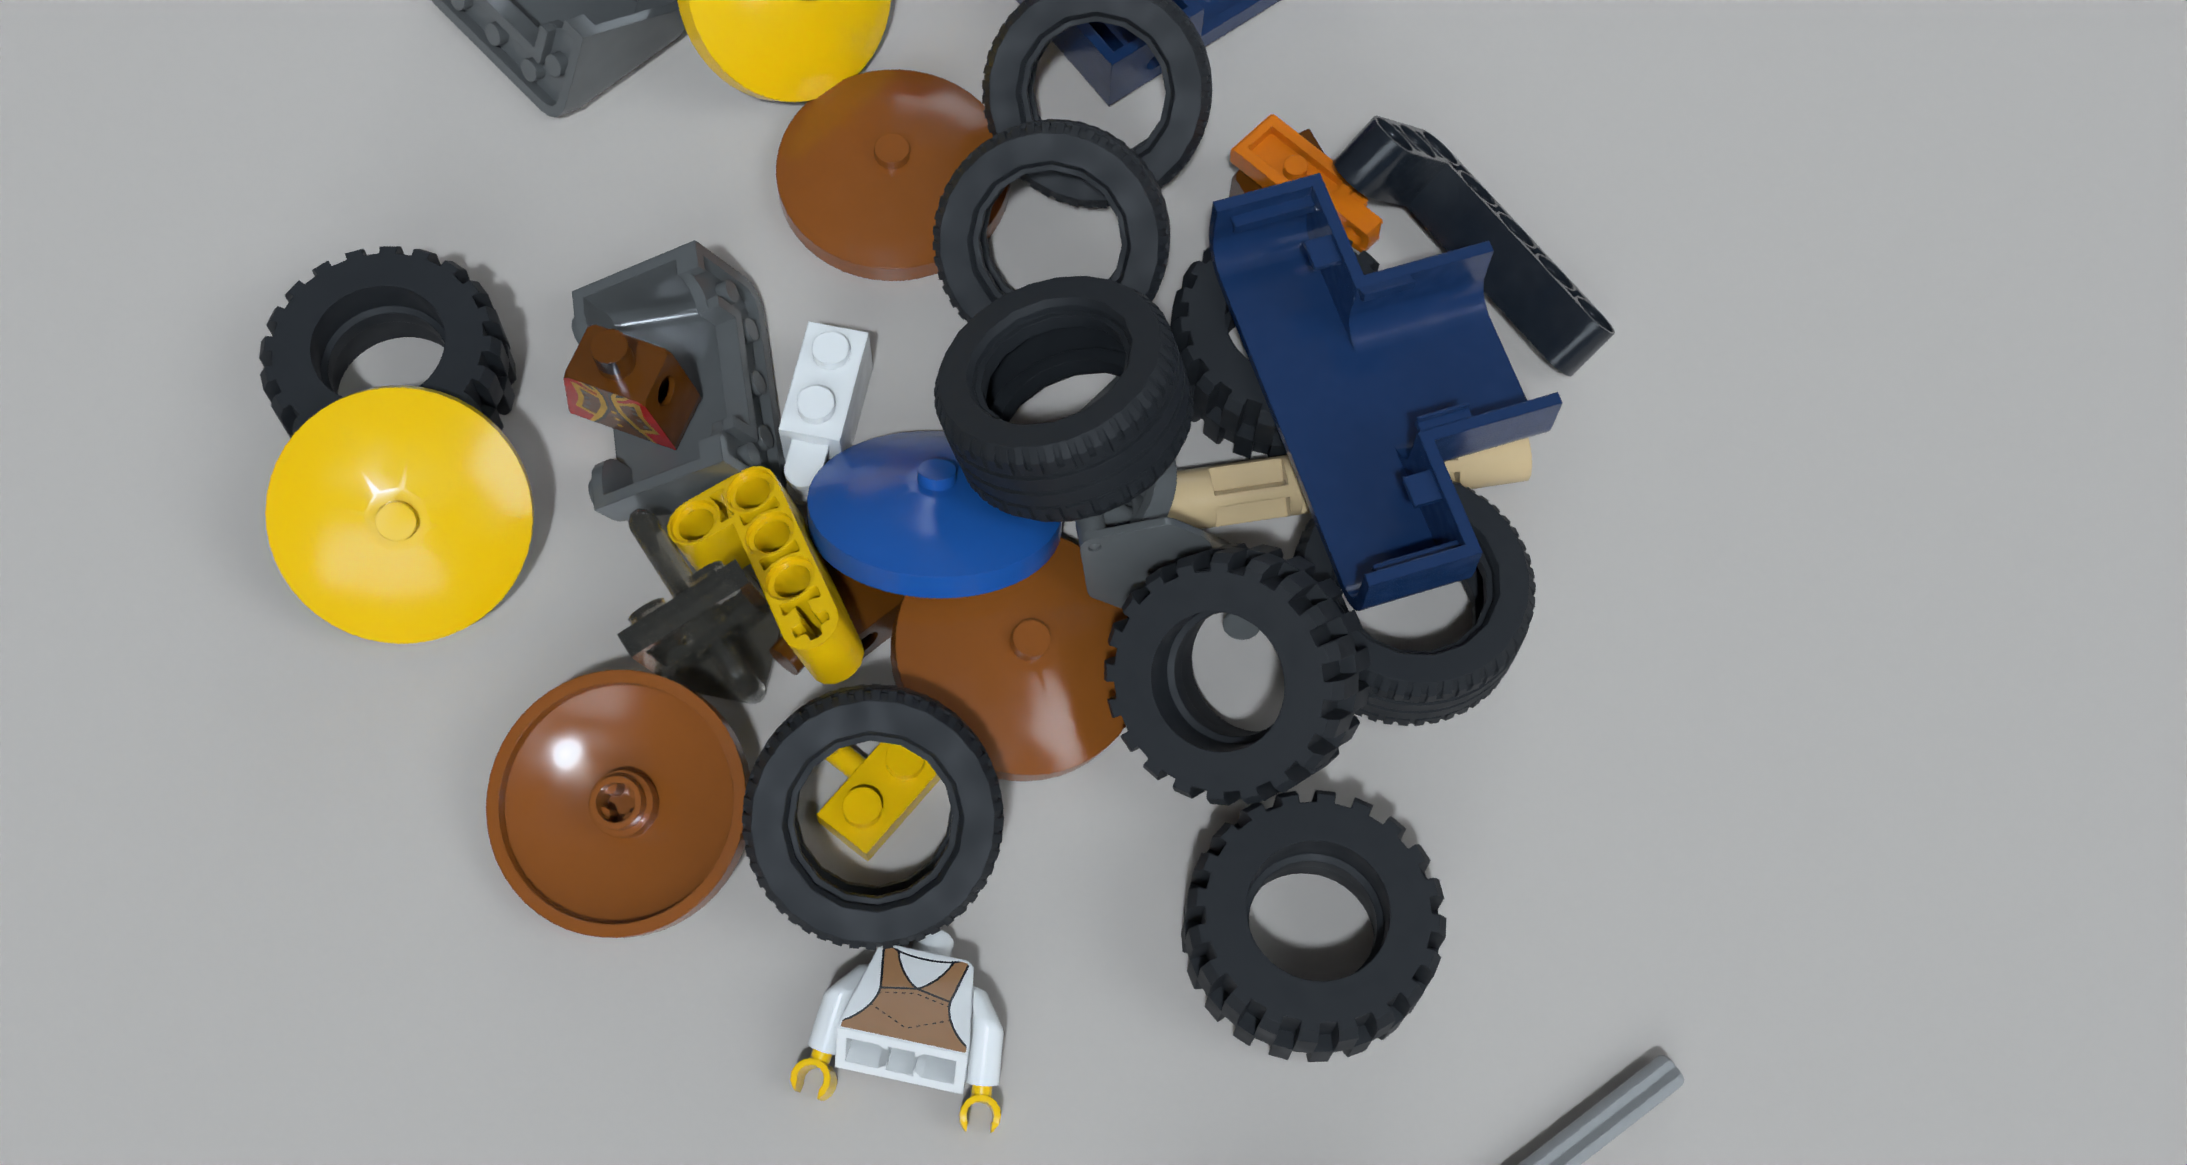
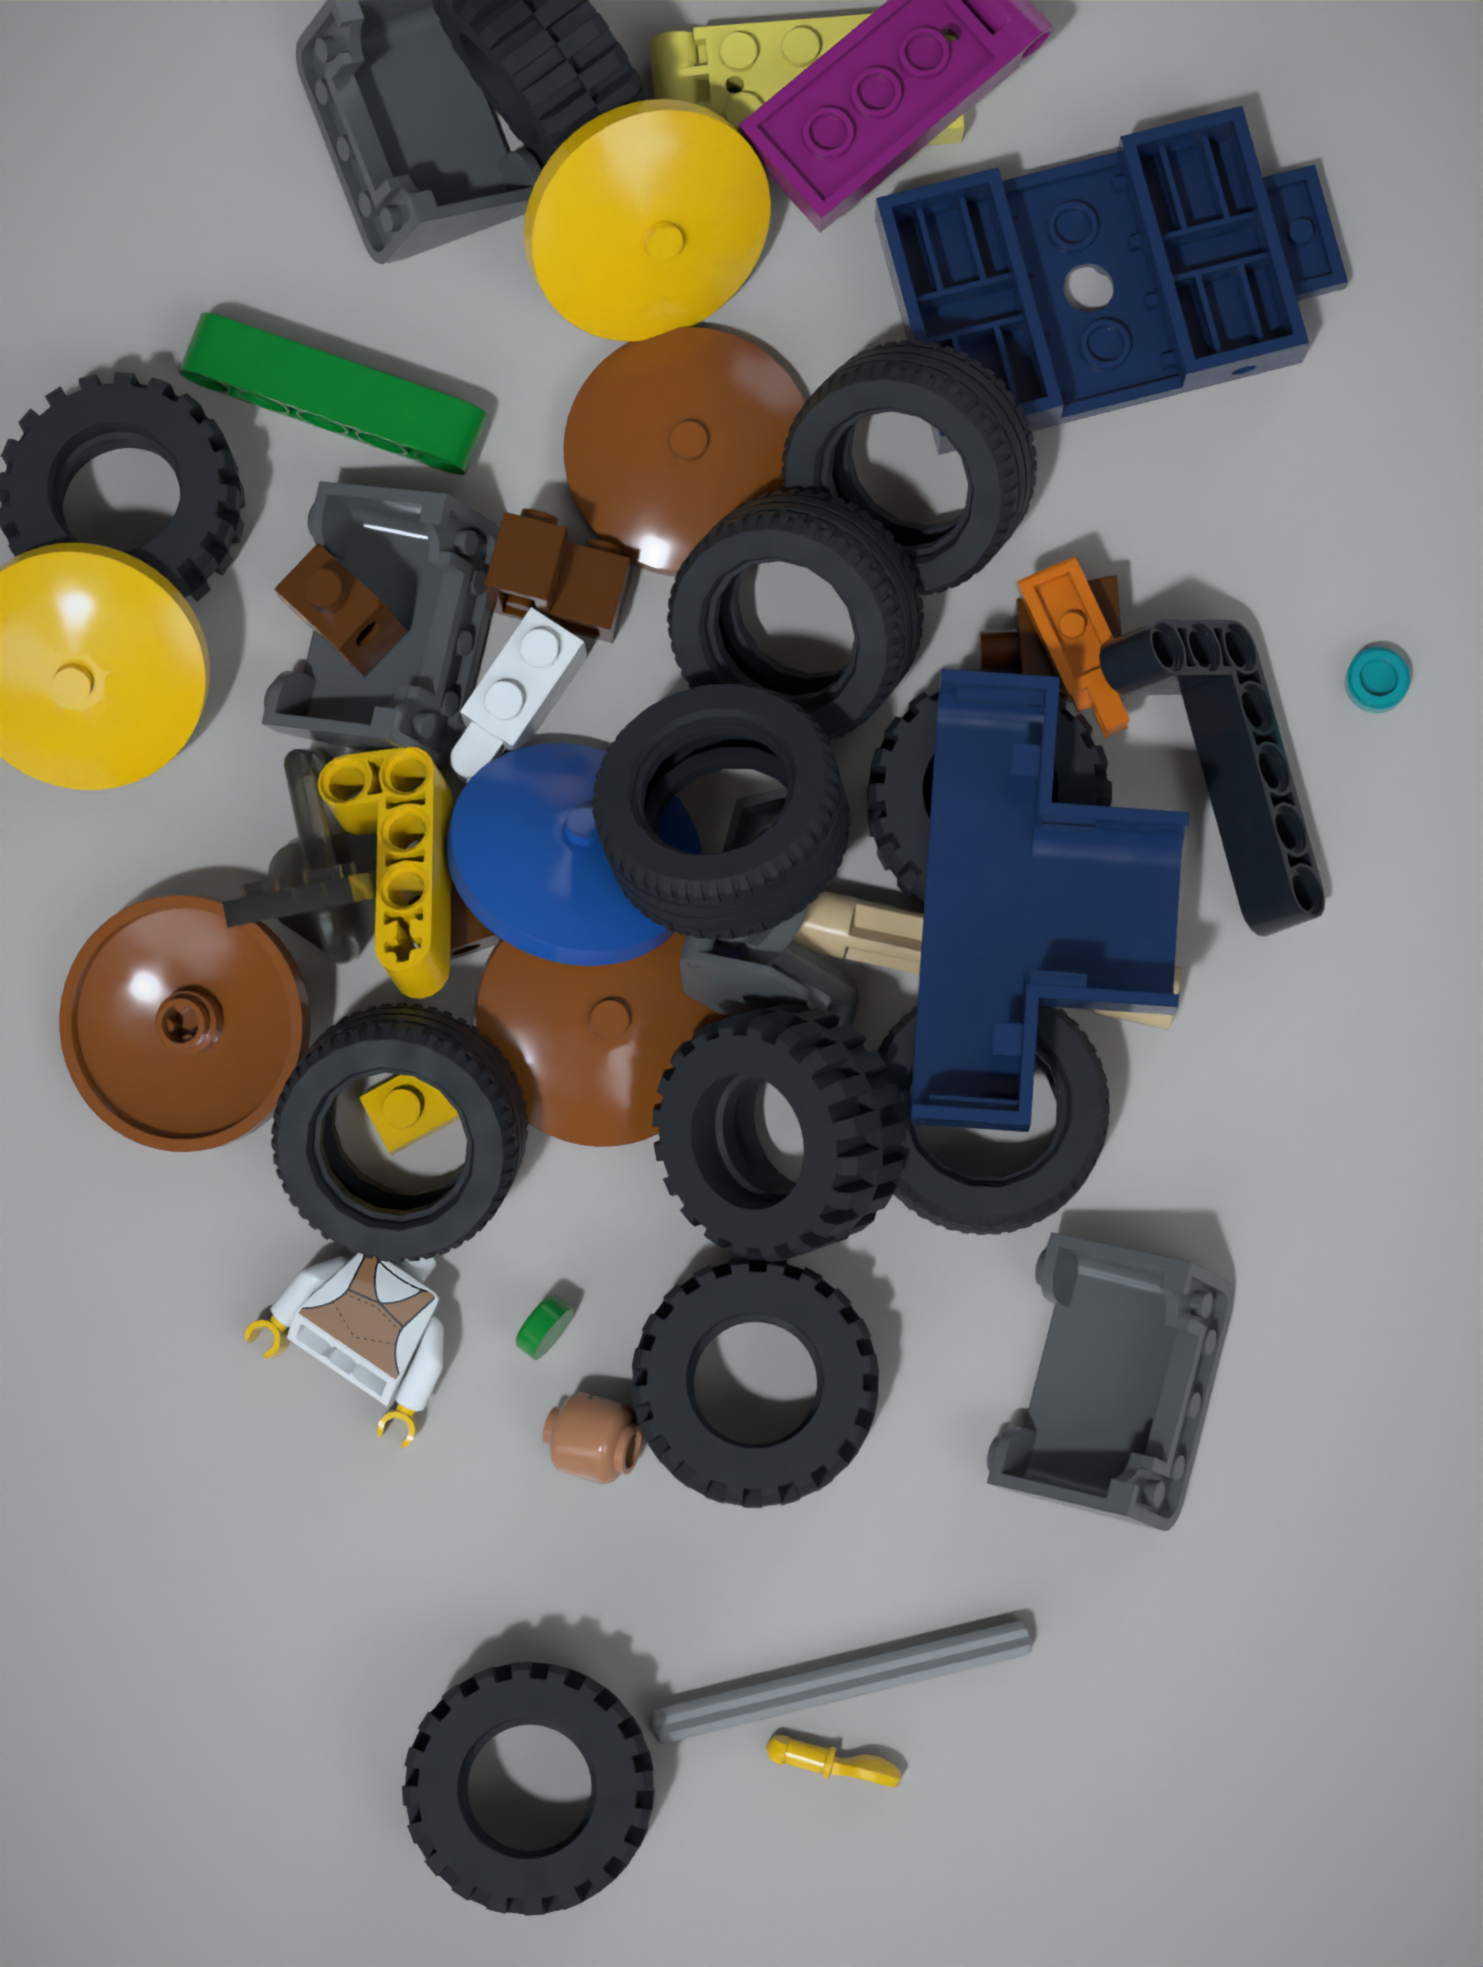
camera: 30 degrees right, 15 degrees up
(555, 225) = (333, 393): none -> green beam
(802, 289) = (560, 579): none -> reddish brown brick
(1083, 958) = (544, 1327): none -> green tile
(1177, 1044) = (593, 1437): none -> nougat head
(1556, 150) = (1377, 680): none -> teal tile
(1635, 794) = (1117, 1382): none -> dark grey windscreen

